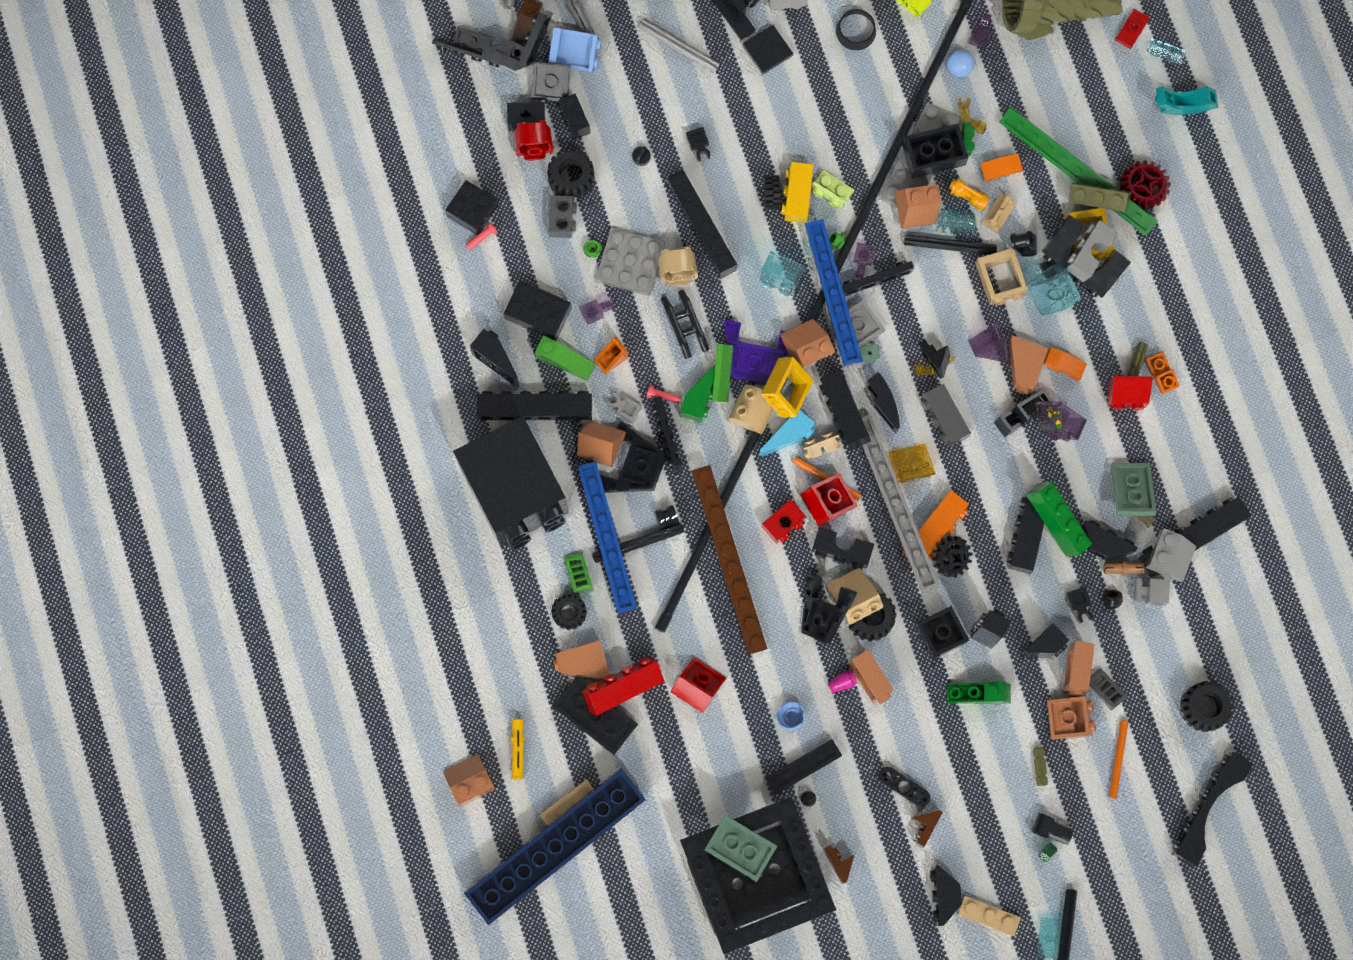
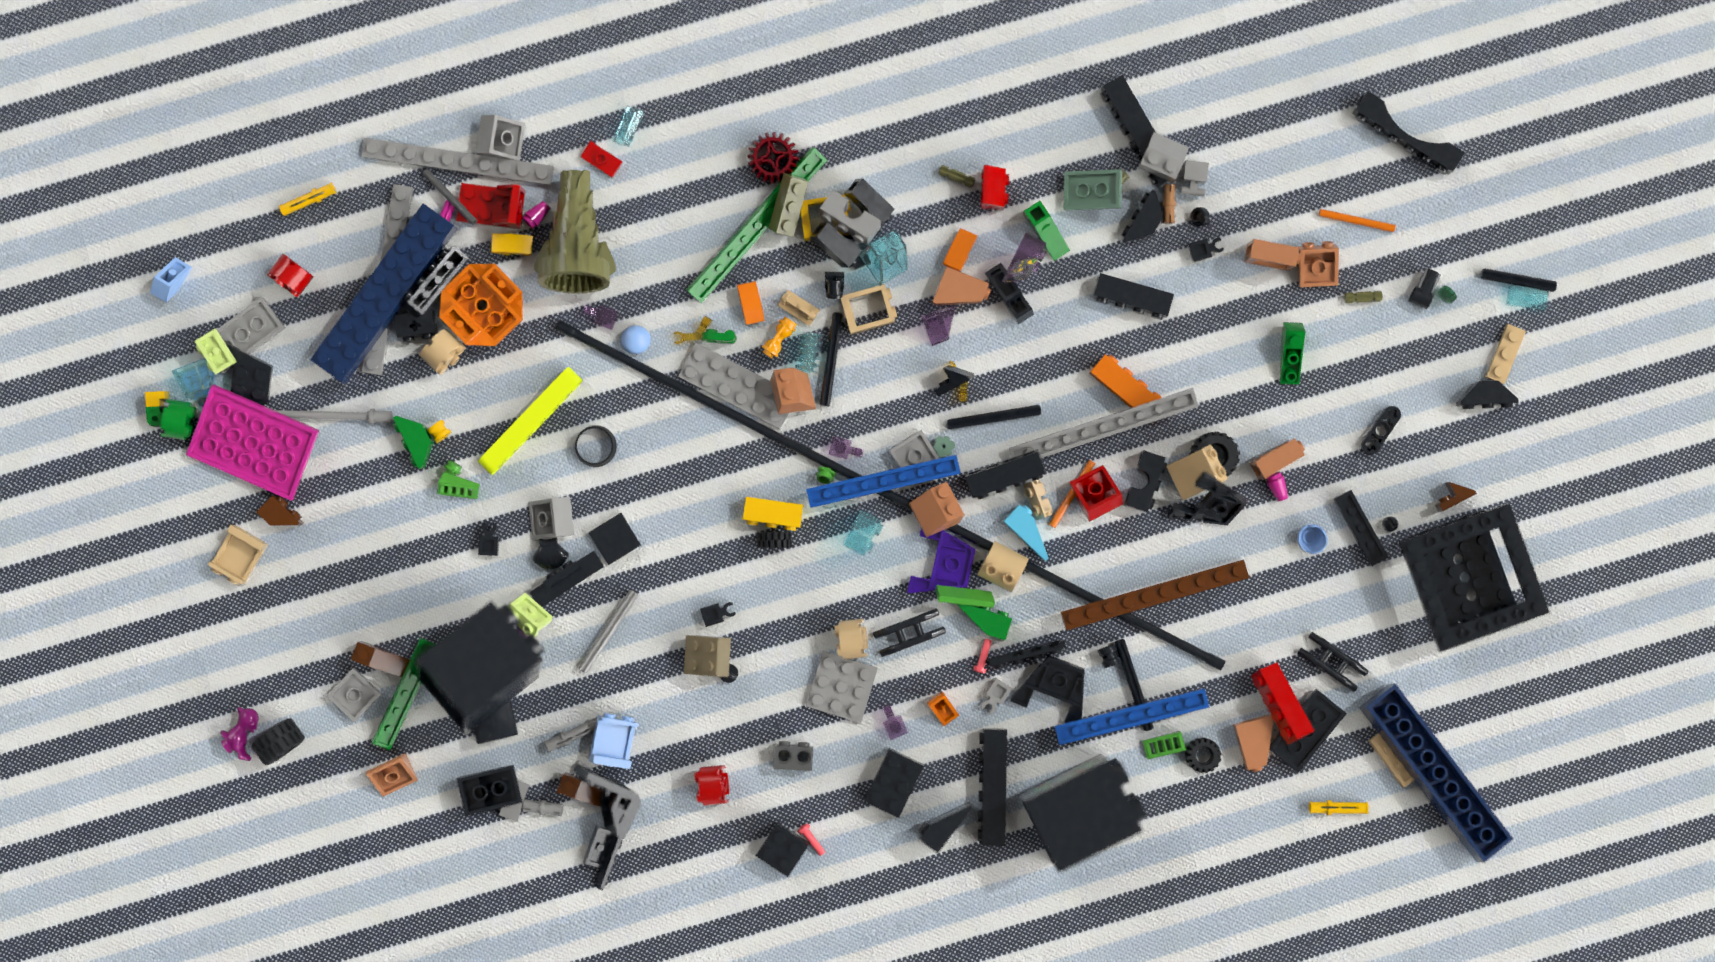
camera: 85 degrees left, 10 degrees up
(468, 780) = (1368, 856): nougat slope -> none
(517, 111) = (678, 801): black brick -> none
(550, 81) = (647, 766): tile -> none
(564, 358) = (944, 755): bright green slope -> none
(567, 160) = (756, 762): black tyre -> none
(574, 116) = (686, 742): black brick -> none
(592, 244) = (827, 730): bright green plate -> none
(599, 443) = (1032, 721): nougat slope -> none
(658, 132) = (707, 655): none -> dark tan brick
(666, 753) = (1321, 663): none -> black piece
(698, 684) = (1278, 628): red slope -> none
(701, 224) = (805, 613): black brick -> none
(740, 848) = (1453, 593): sand green plate -> none
(785, 368) = (979, 542): yellow window -> none
(790, 512) = (1107, 533): red brick -> none
(832, 190) = (769, 477): yellowish green bracket -> none
(884, 401) = (995, 433): black slope -> none
(900, 400) = (994, 417): none -> black axle
(901, 269) = (856, 410): black plate -> none
(912, 463) = (1059, 409): clear yellow hinge -> none
(929, 822) = (1416, 407): reddish brown slope -> none
(935, 150) = (736, 371): black brick -> none
(941, 633) = (1233, 387): black brick -> none
(945, 416) = (1012, 373): dark grey brick -> none
(959, 556) = (1156, 373): black gear -> none
(990, 628) = (1236, 340): black brick -> none
(1049, 643) = (1248, 286): black slope -> none
(1058, 519) = (1124, 266): green brick -> none
(1090, 445) = (1046, 230): none -> slope
(1111, 684) = (1301, 216): dark grey slope -> none
(1161, 372) = (970, 153): orange slope -> none
(1186, 102) = (684, 109): teal arch -> none
(1220, 697) = (1316, 117): black tyre -> none

